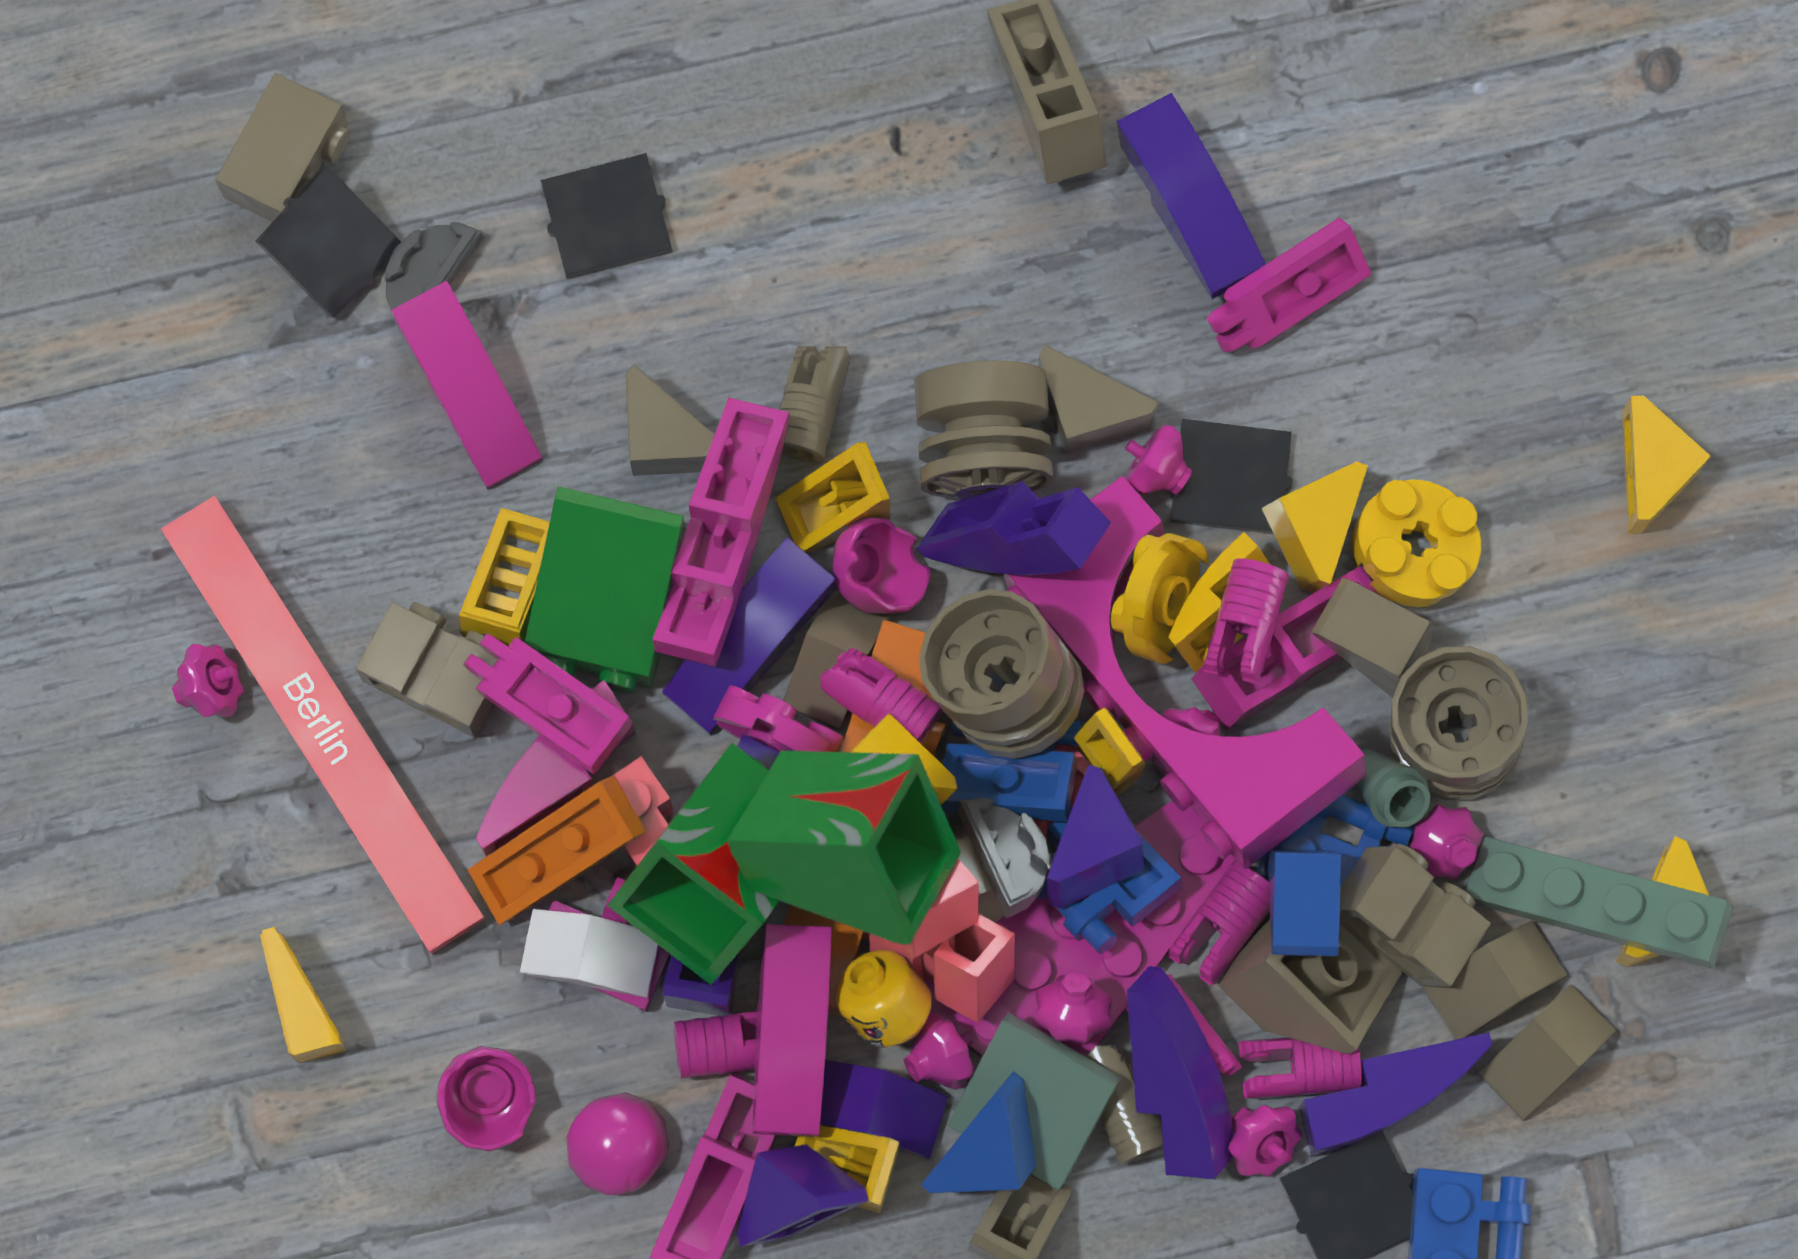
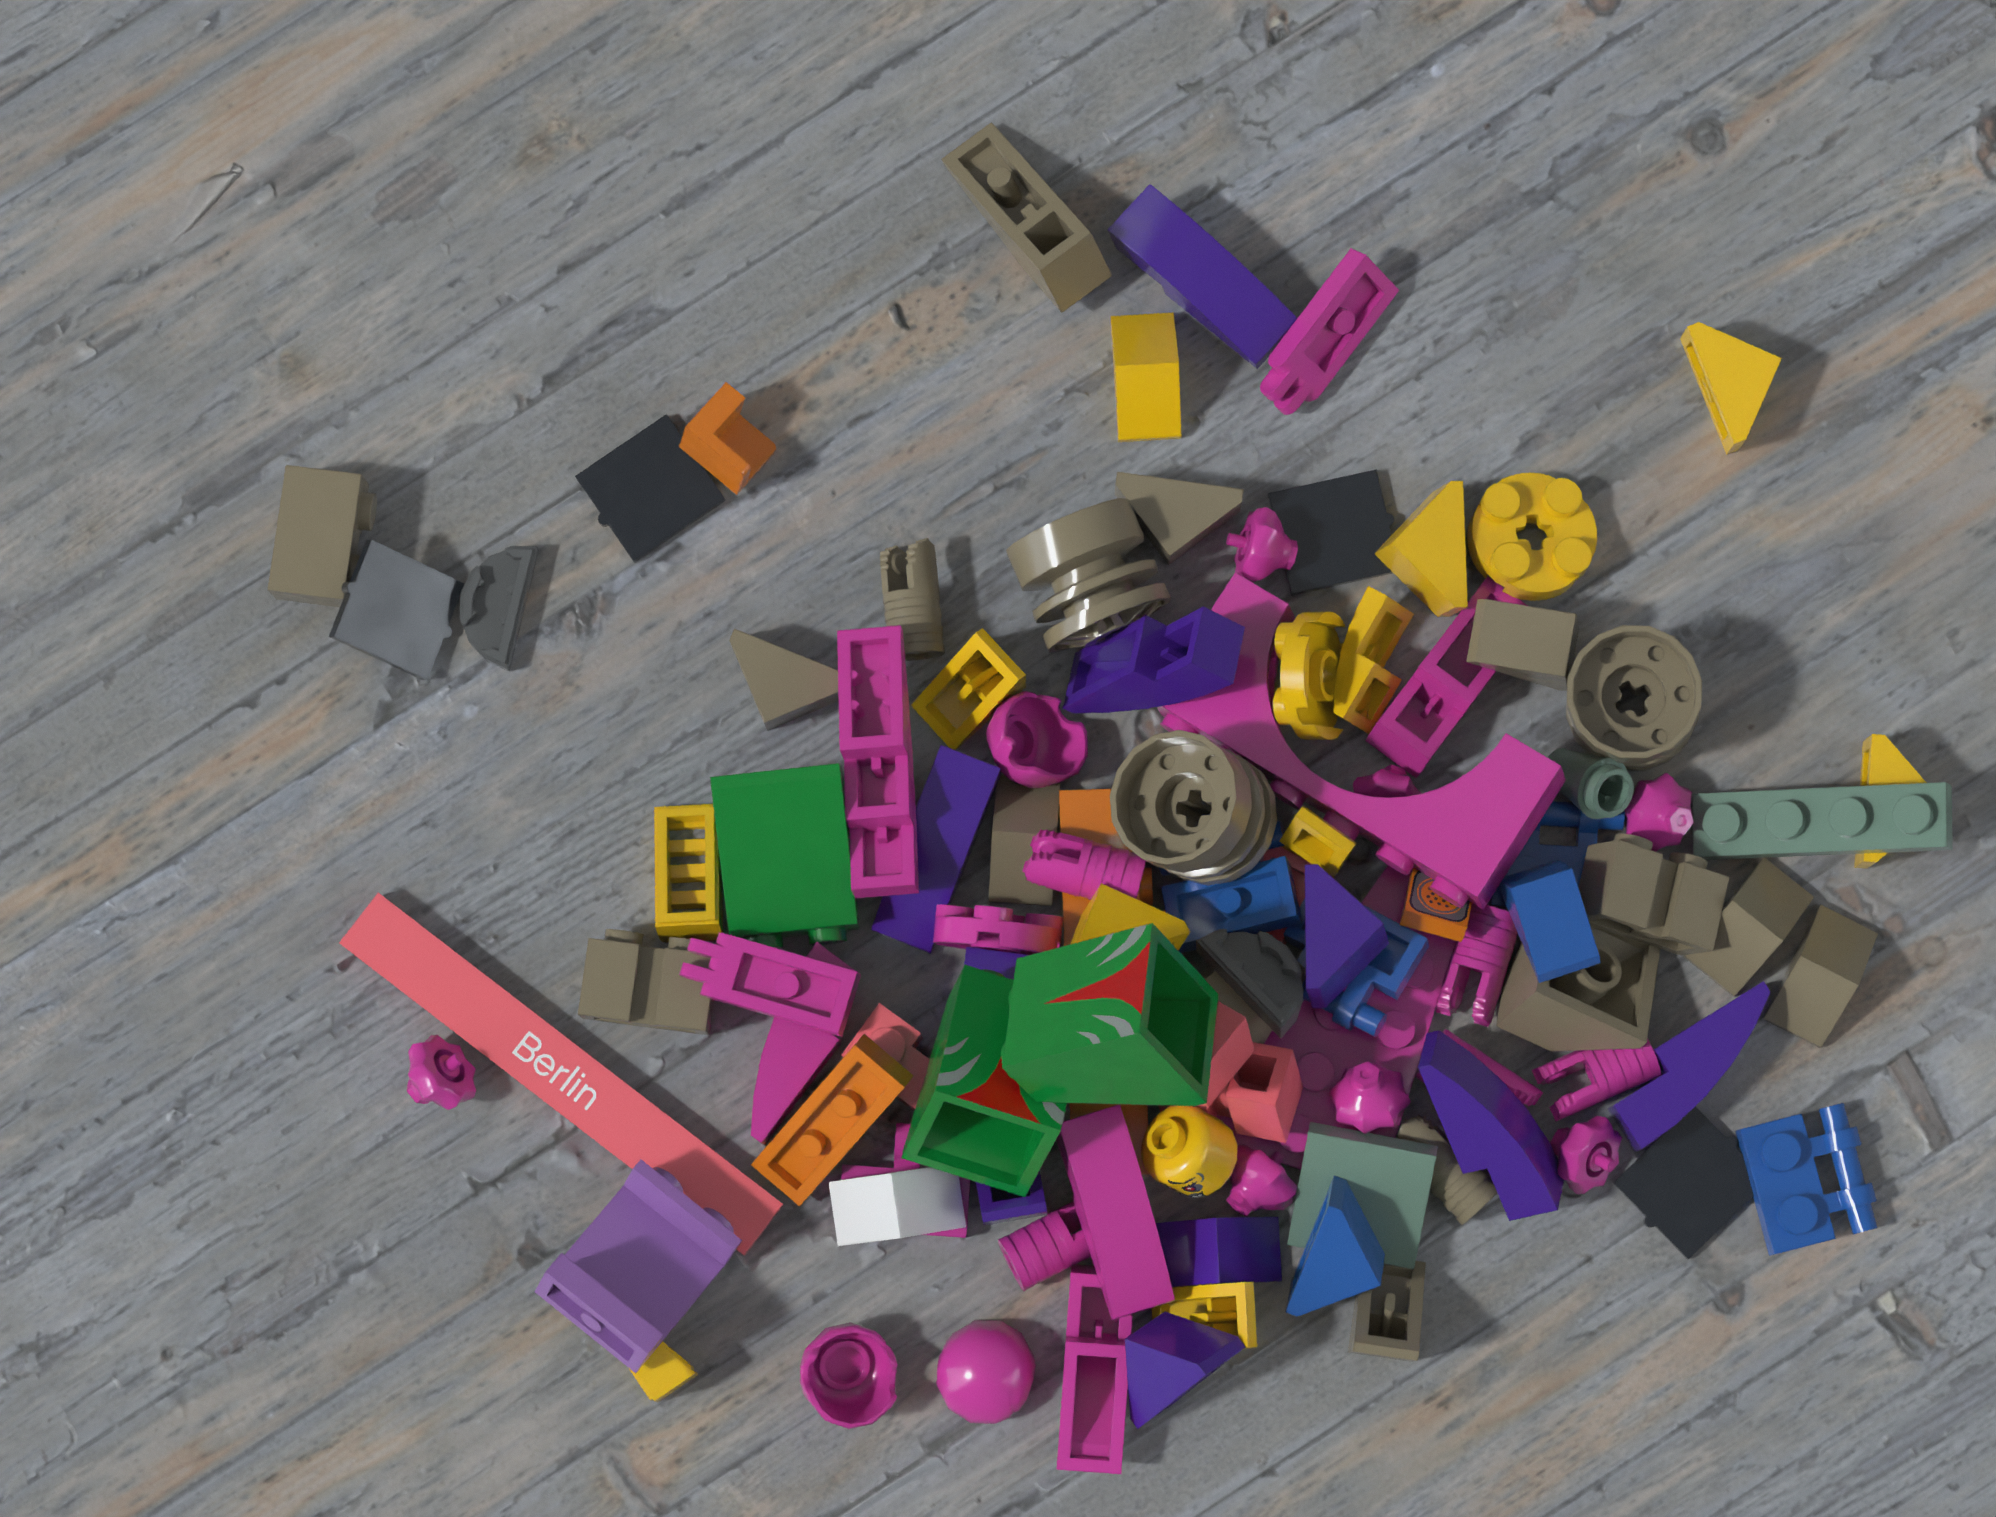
camera: 15 degrees left, 5 degrees up
(325, 923) = (639, 1265): none -> medium lavender panel
(466, 384) = (579, 702): dark pink slope -> none
(690, 193) = (726, 441): none -> orange panel
(1104, 273) = (1146, 377): none -> yellow slope
(1194, 855) = (1432, 913): none -> orange tile
(1250, 609) = (1402, 658): dark pink hinge -> none

